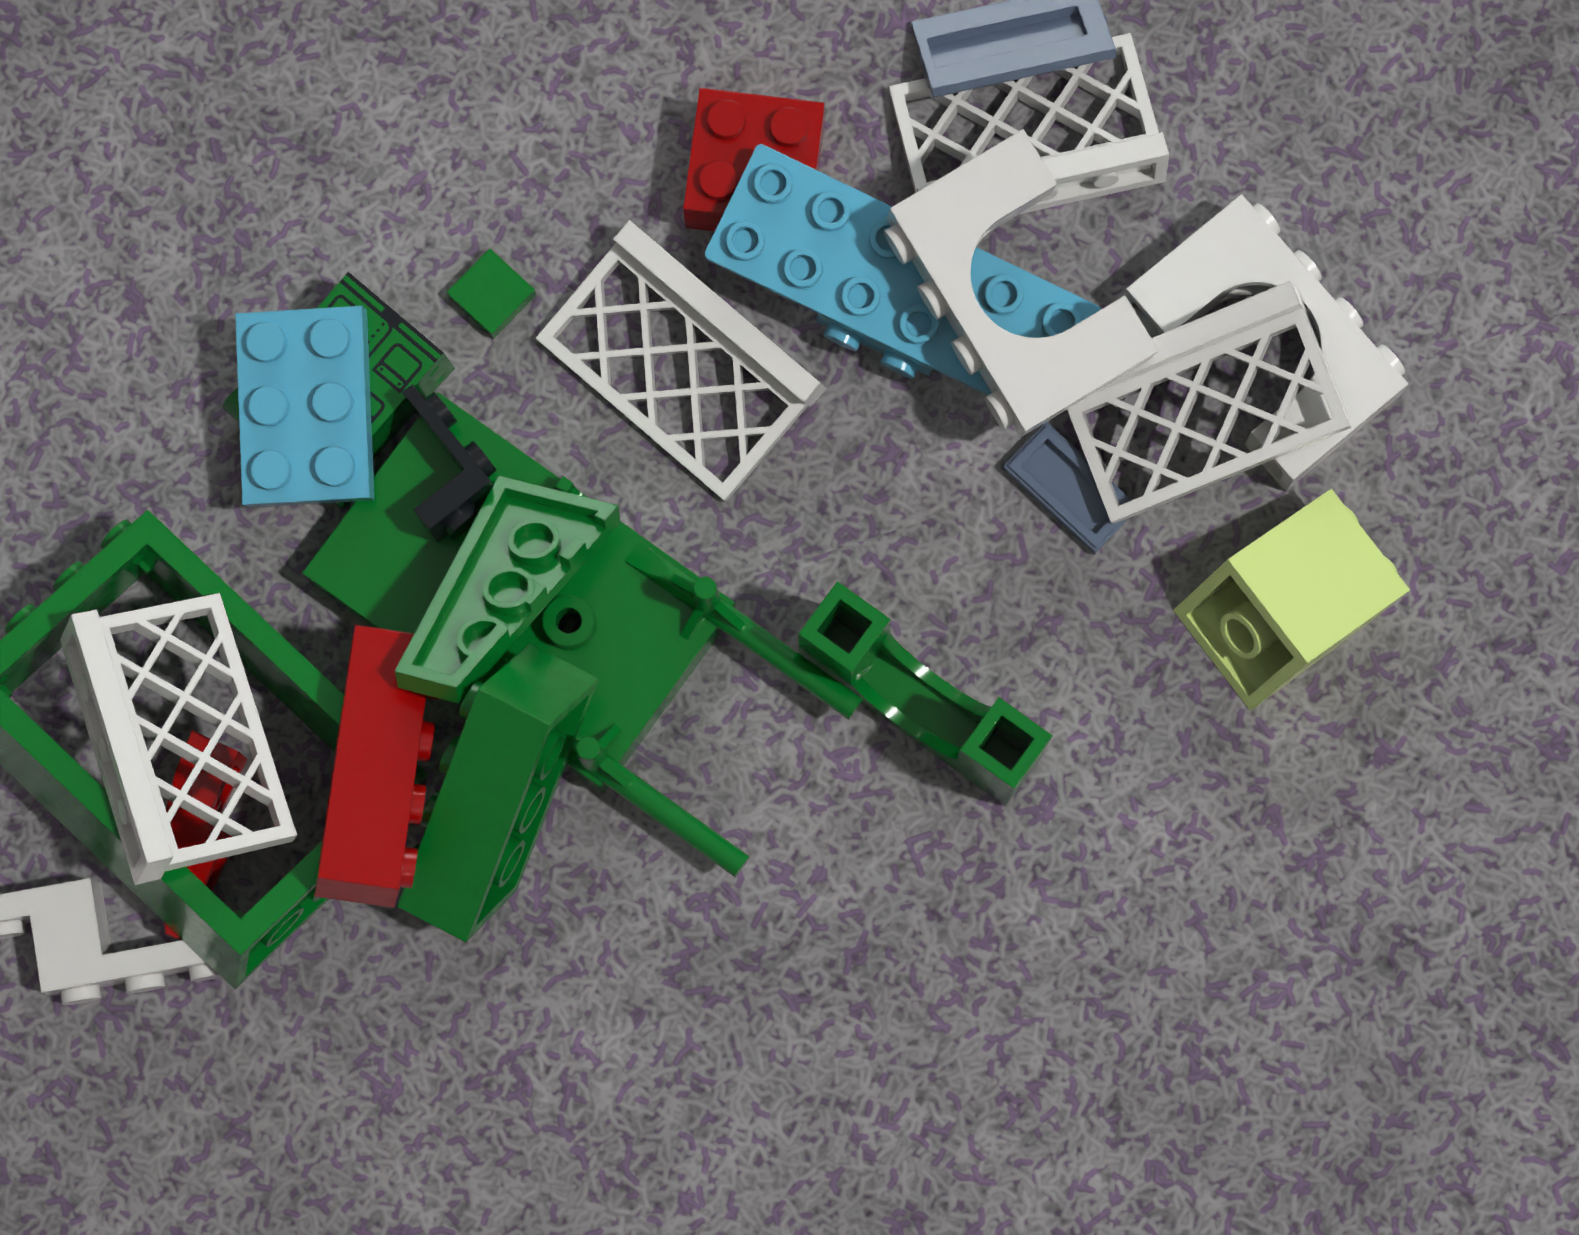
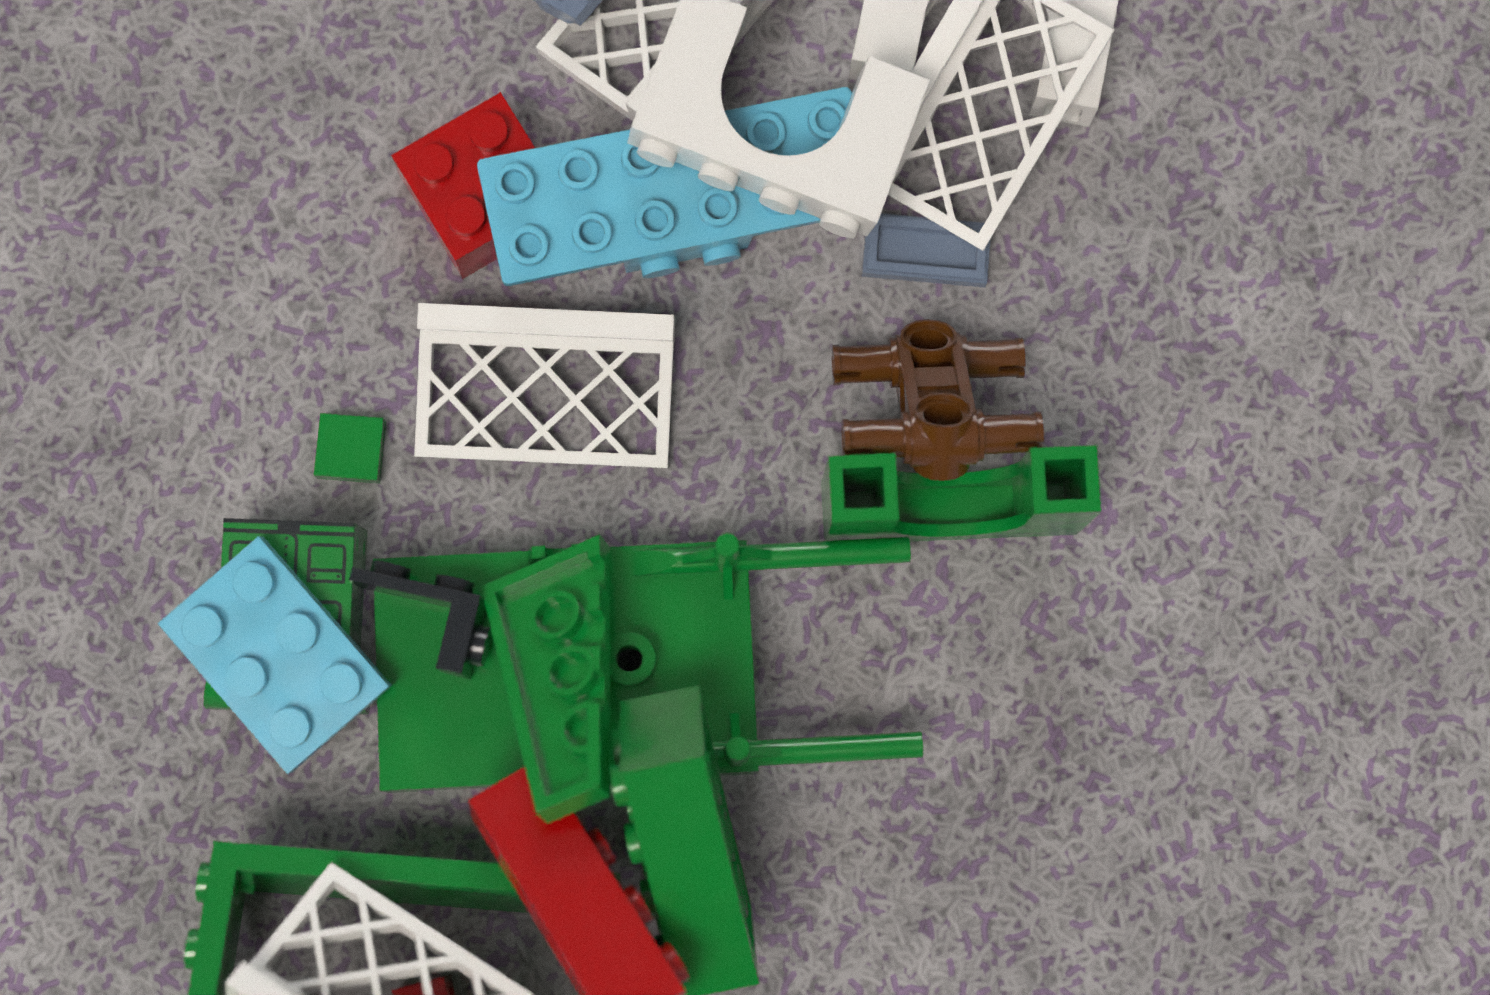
camera: 45 degrees left, 0 degrees up
(951, 629) = (938, 419): none -> reddish brown piece
(1290, 598) = (1167, 204): yellowish green slope -> none

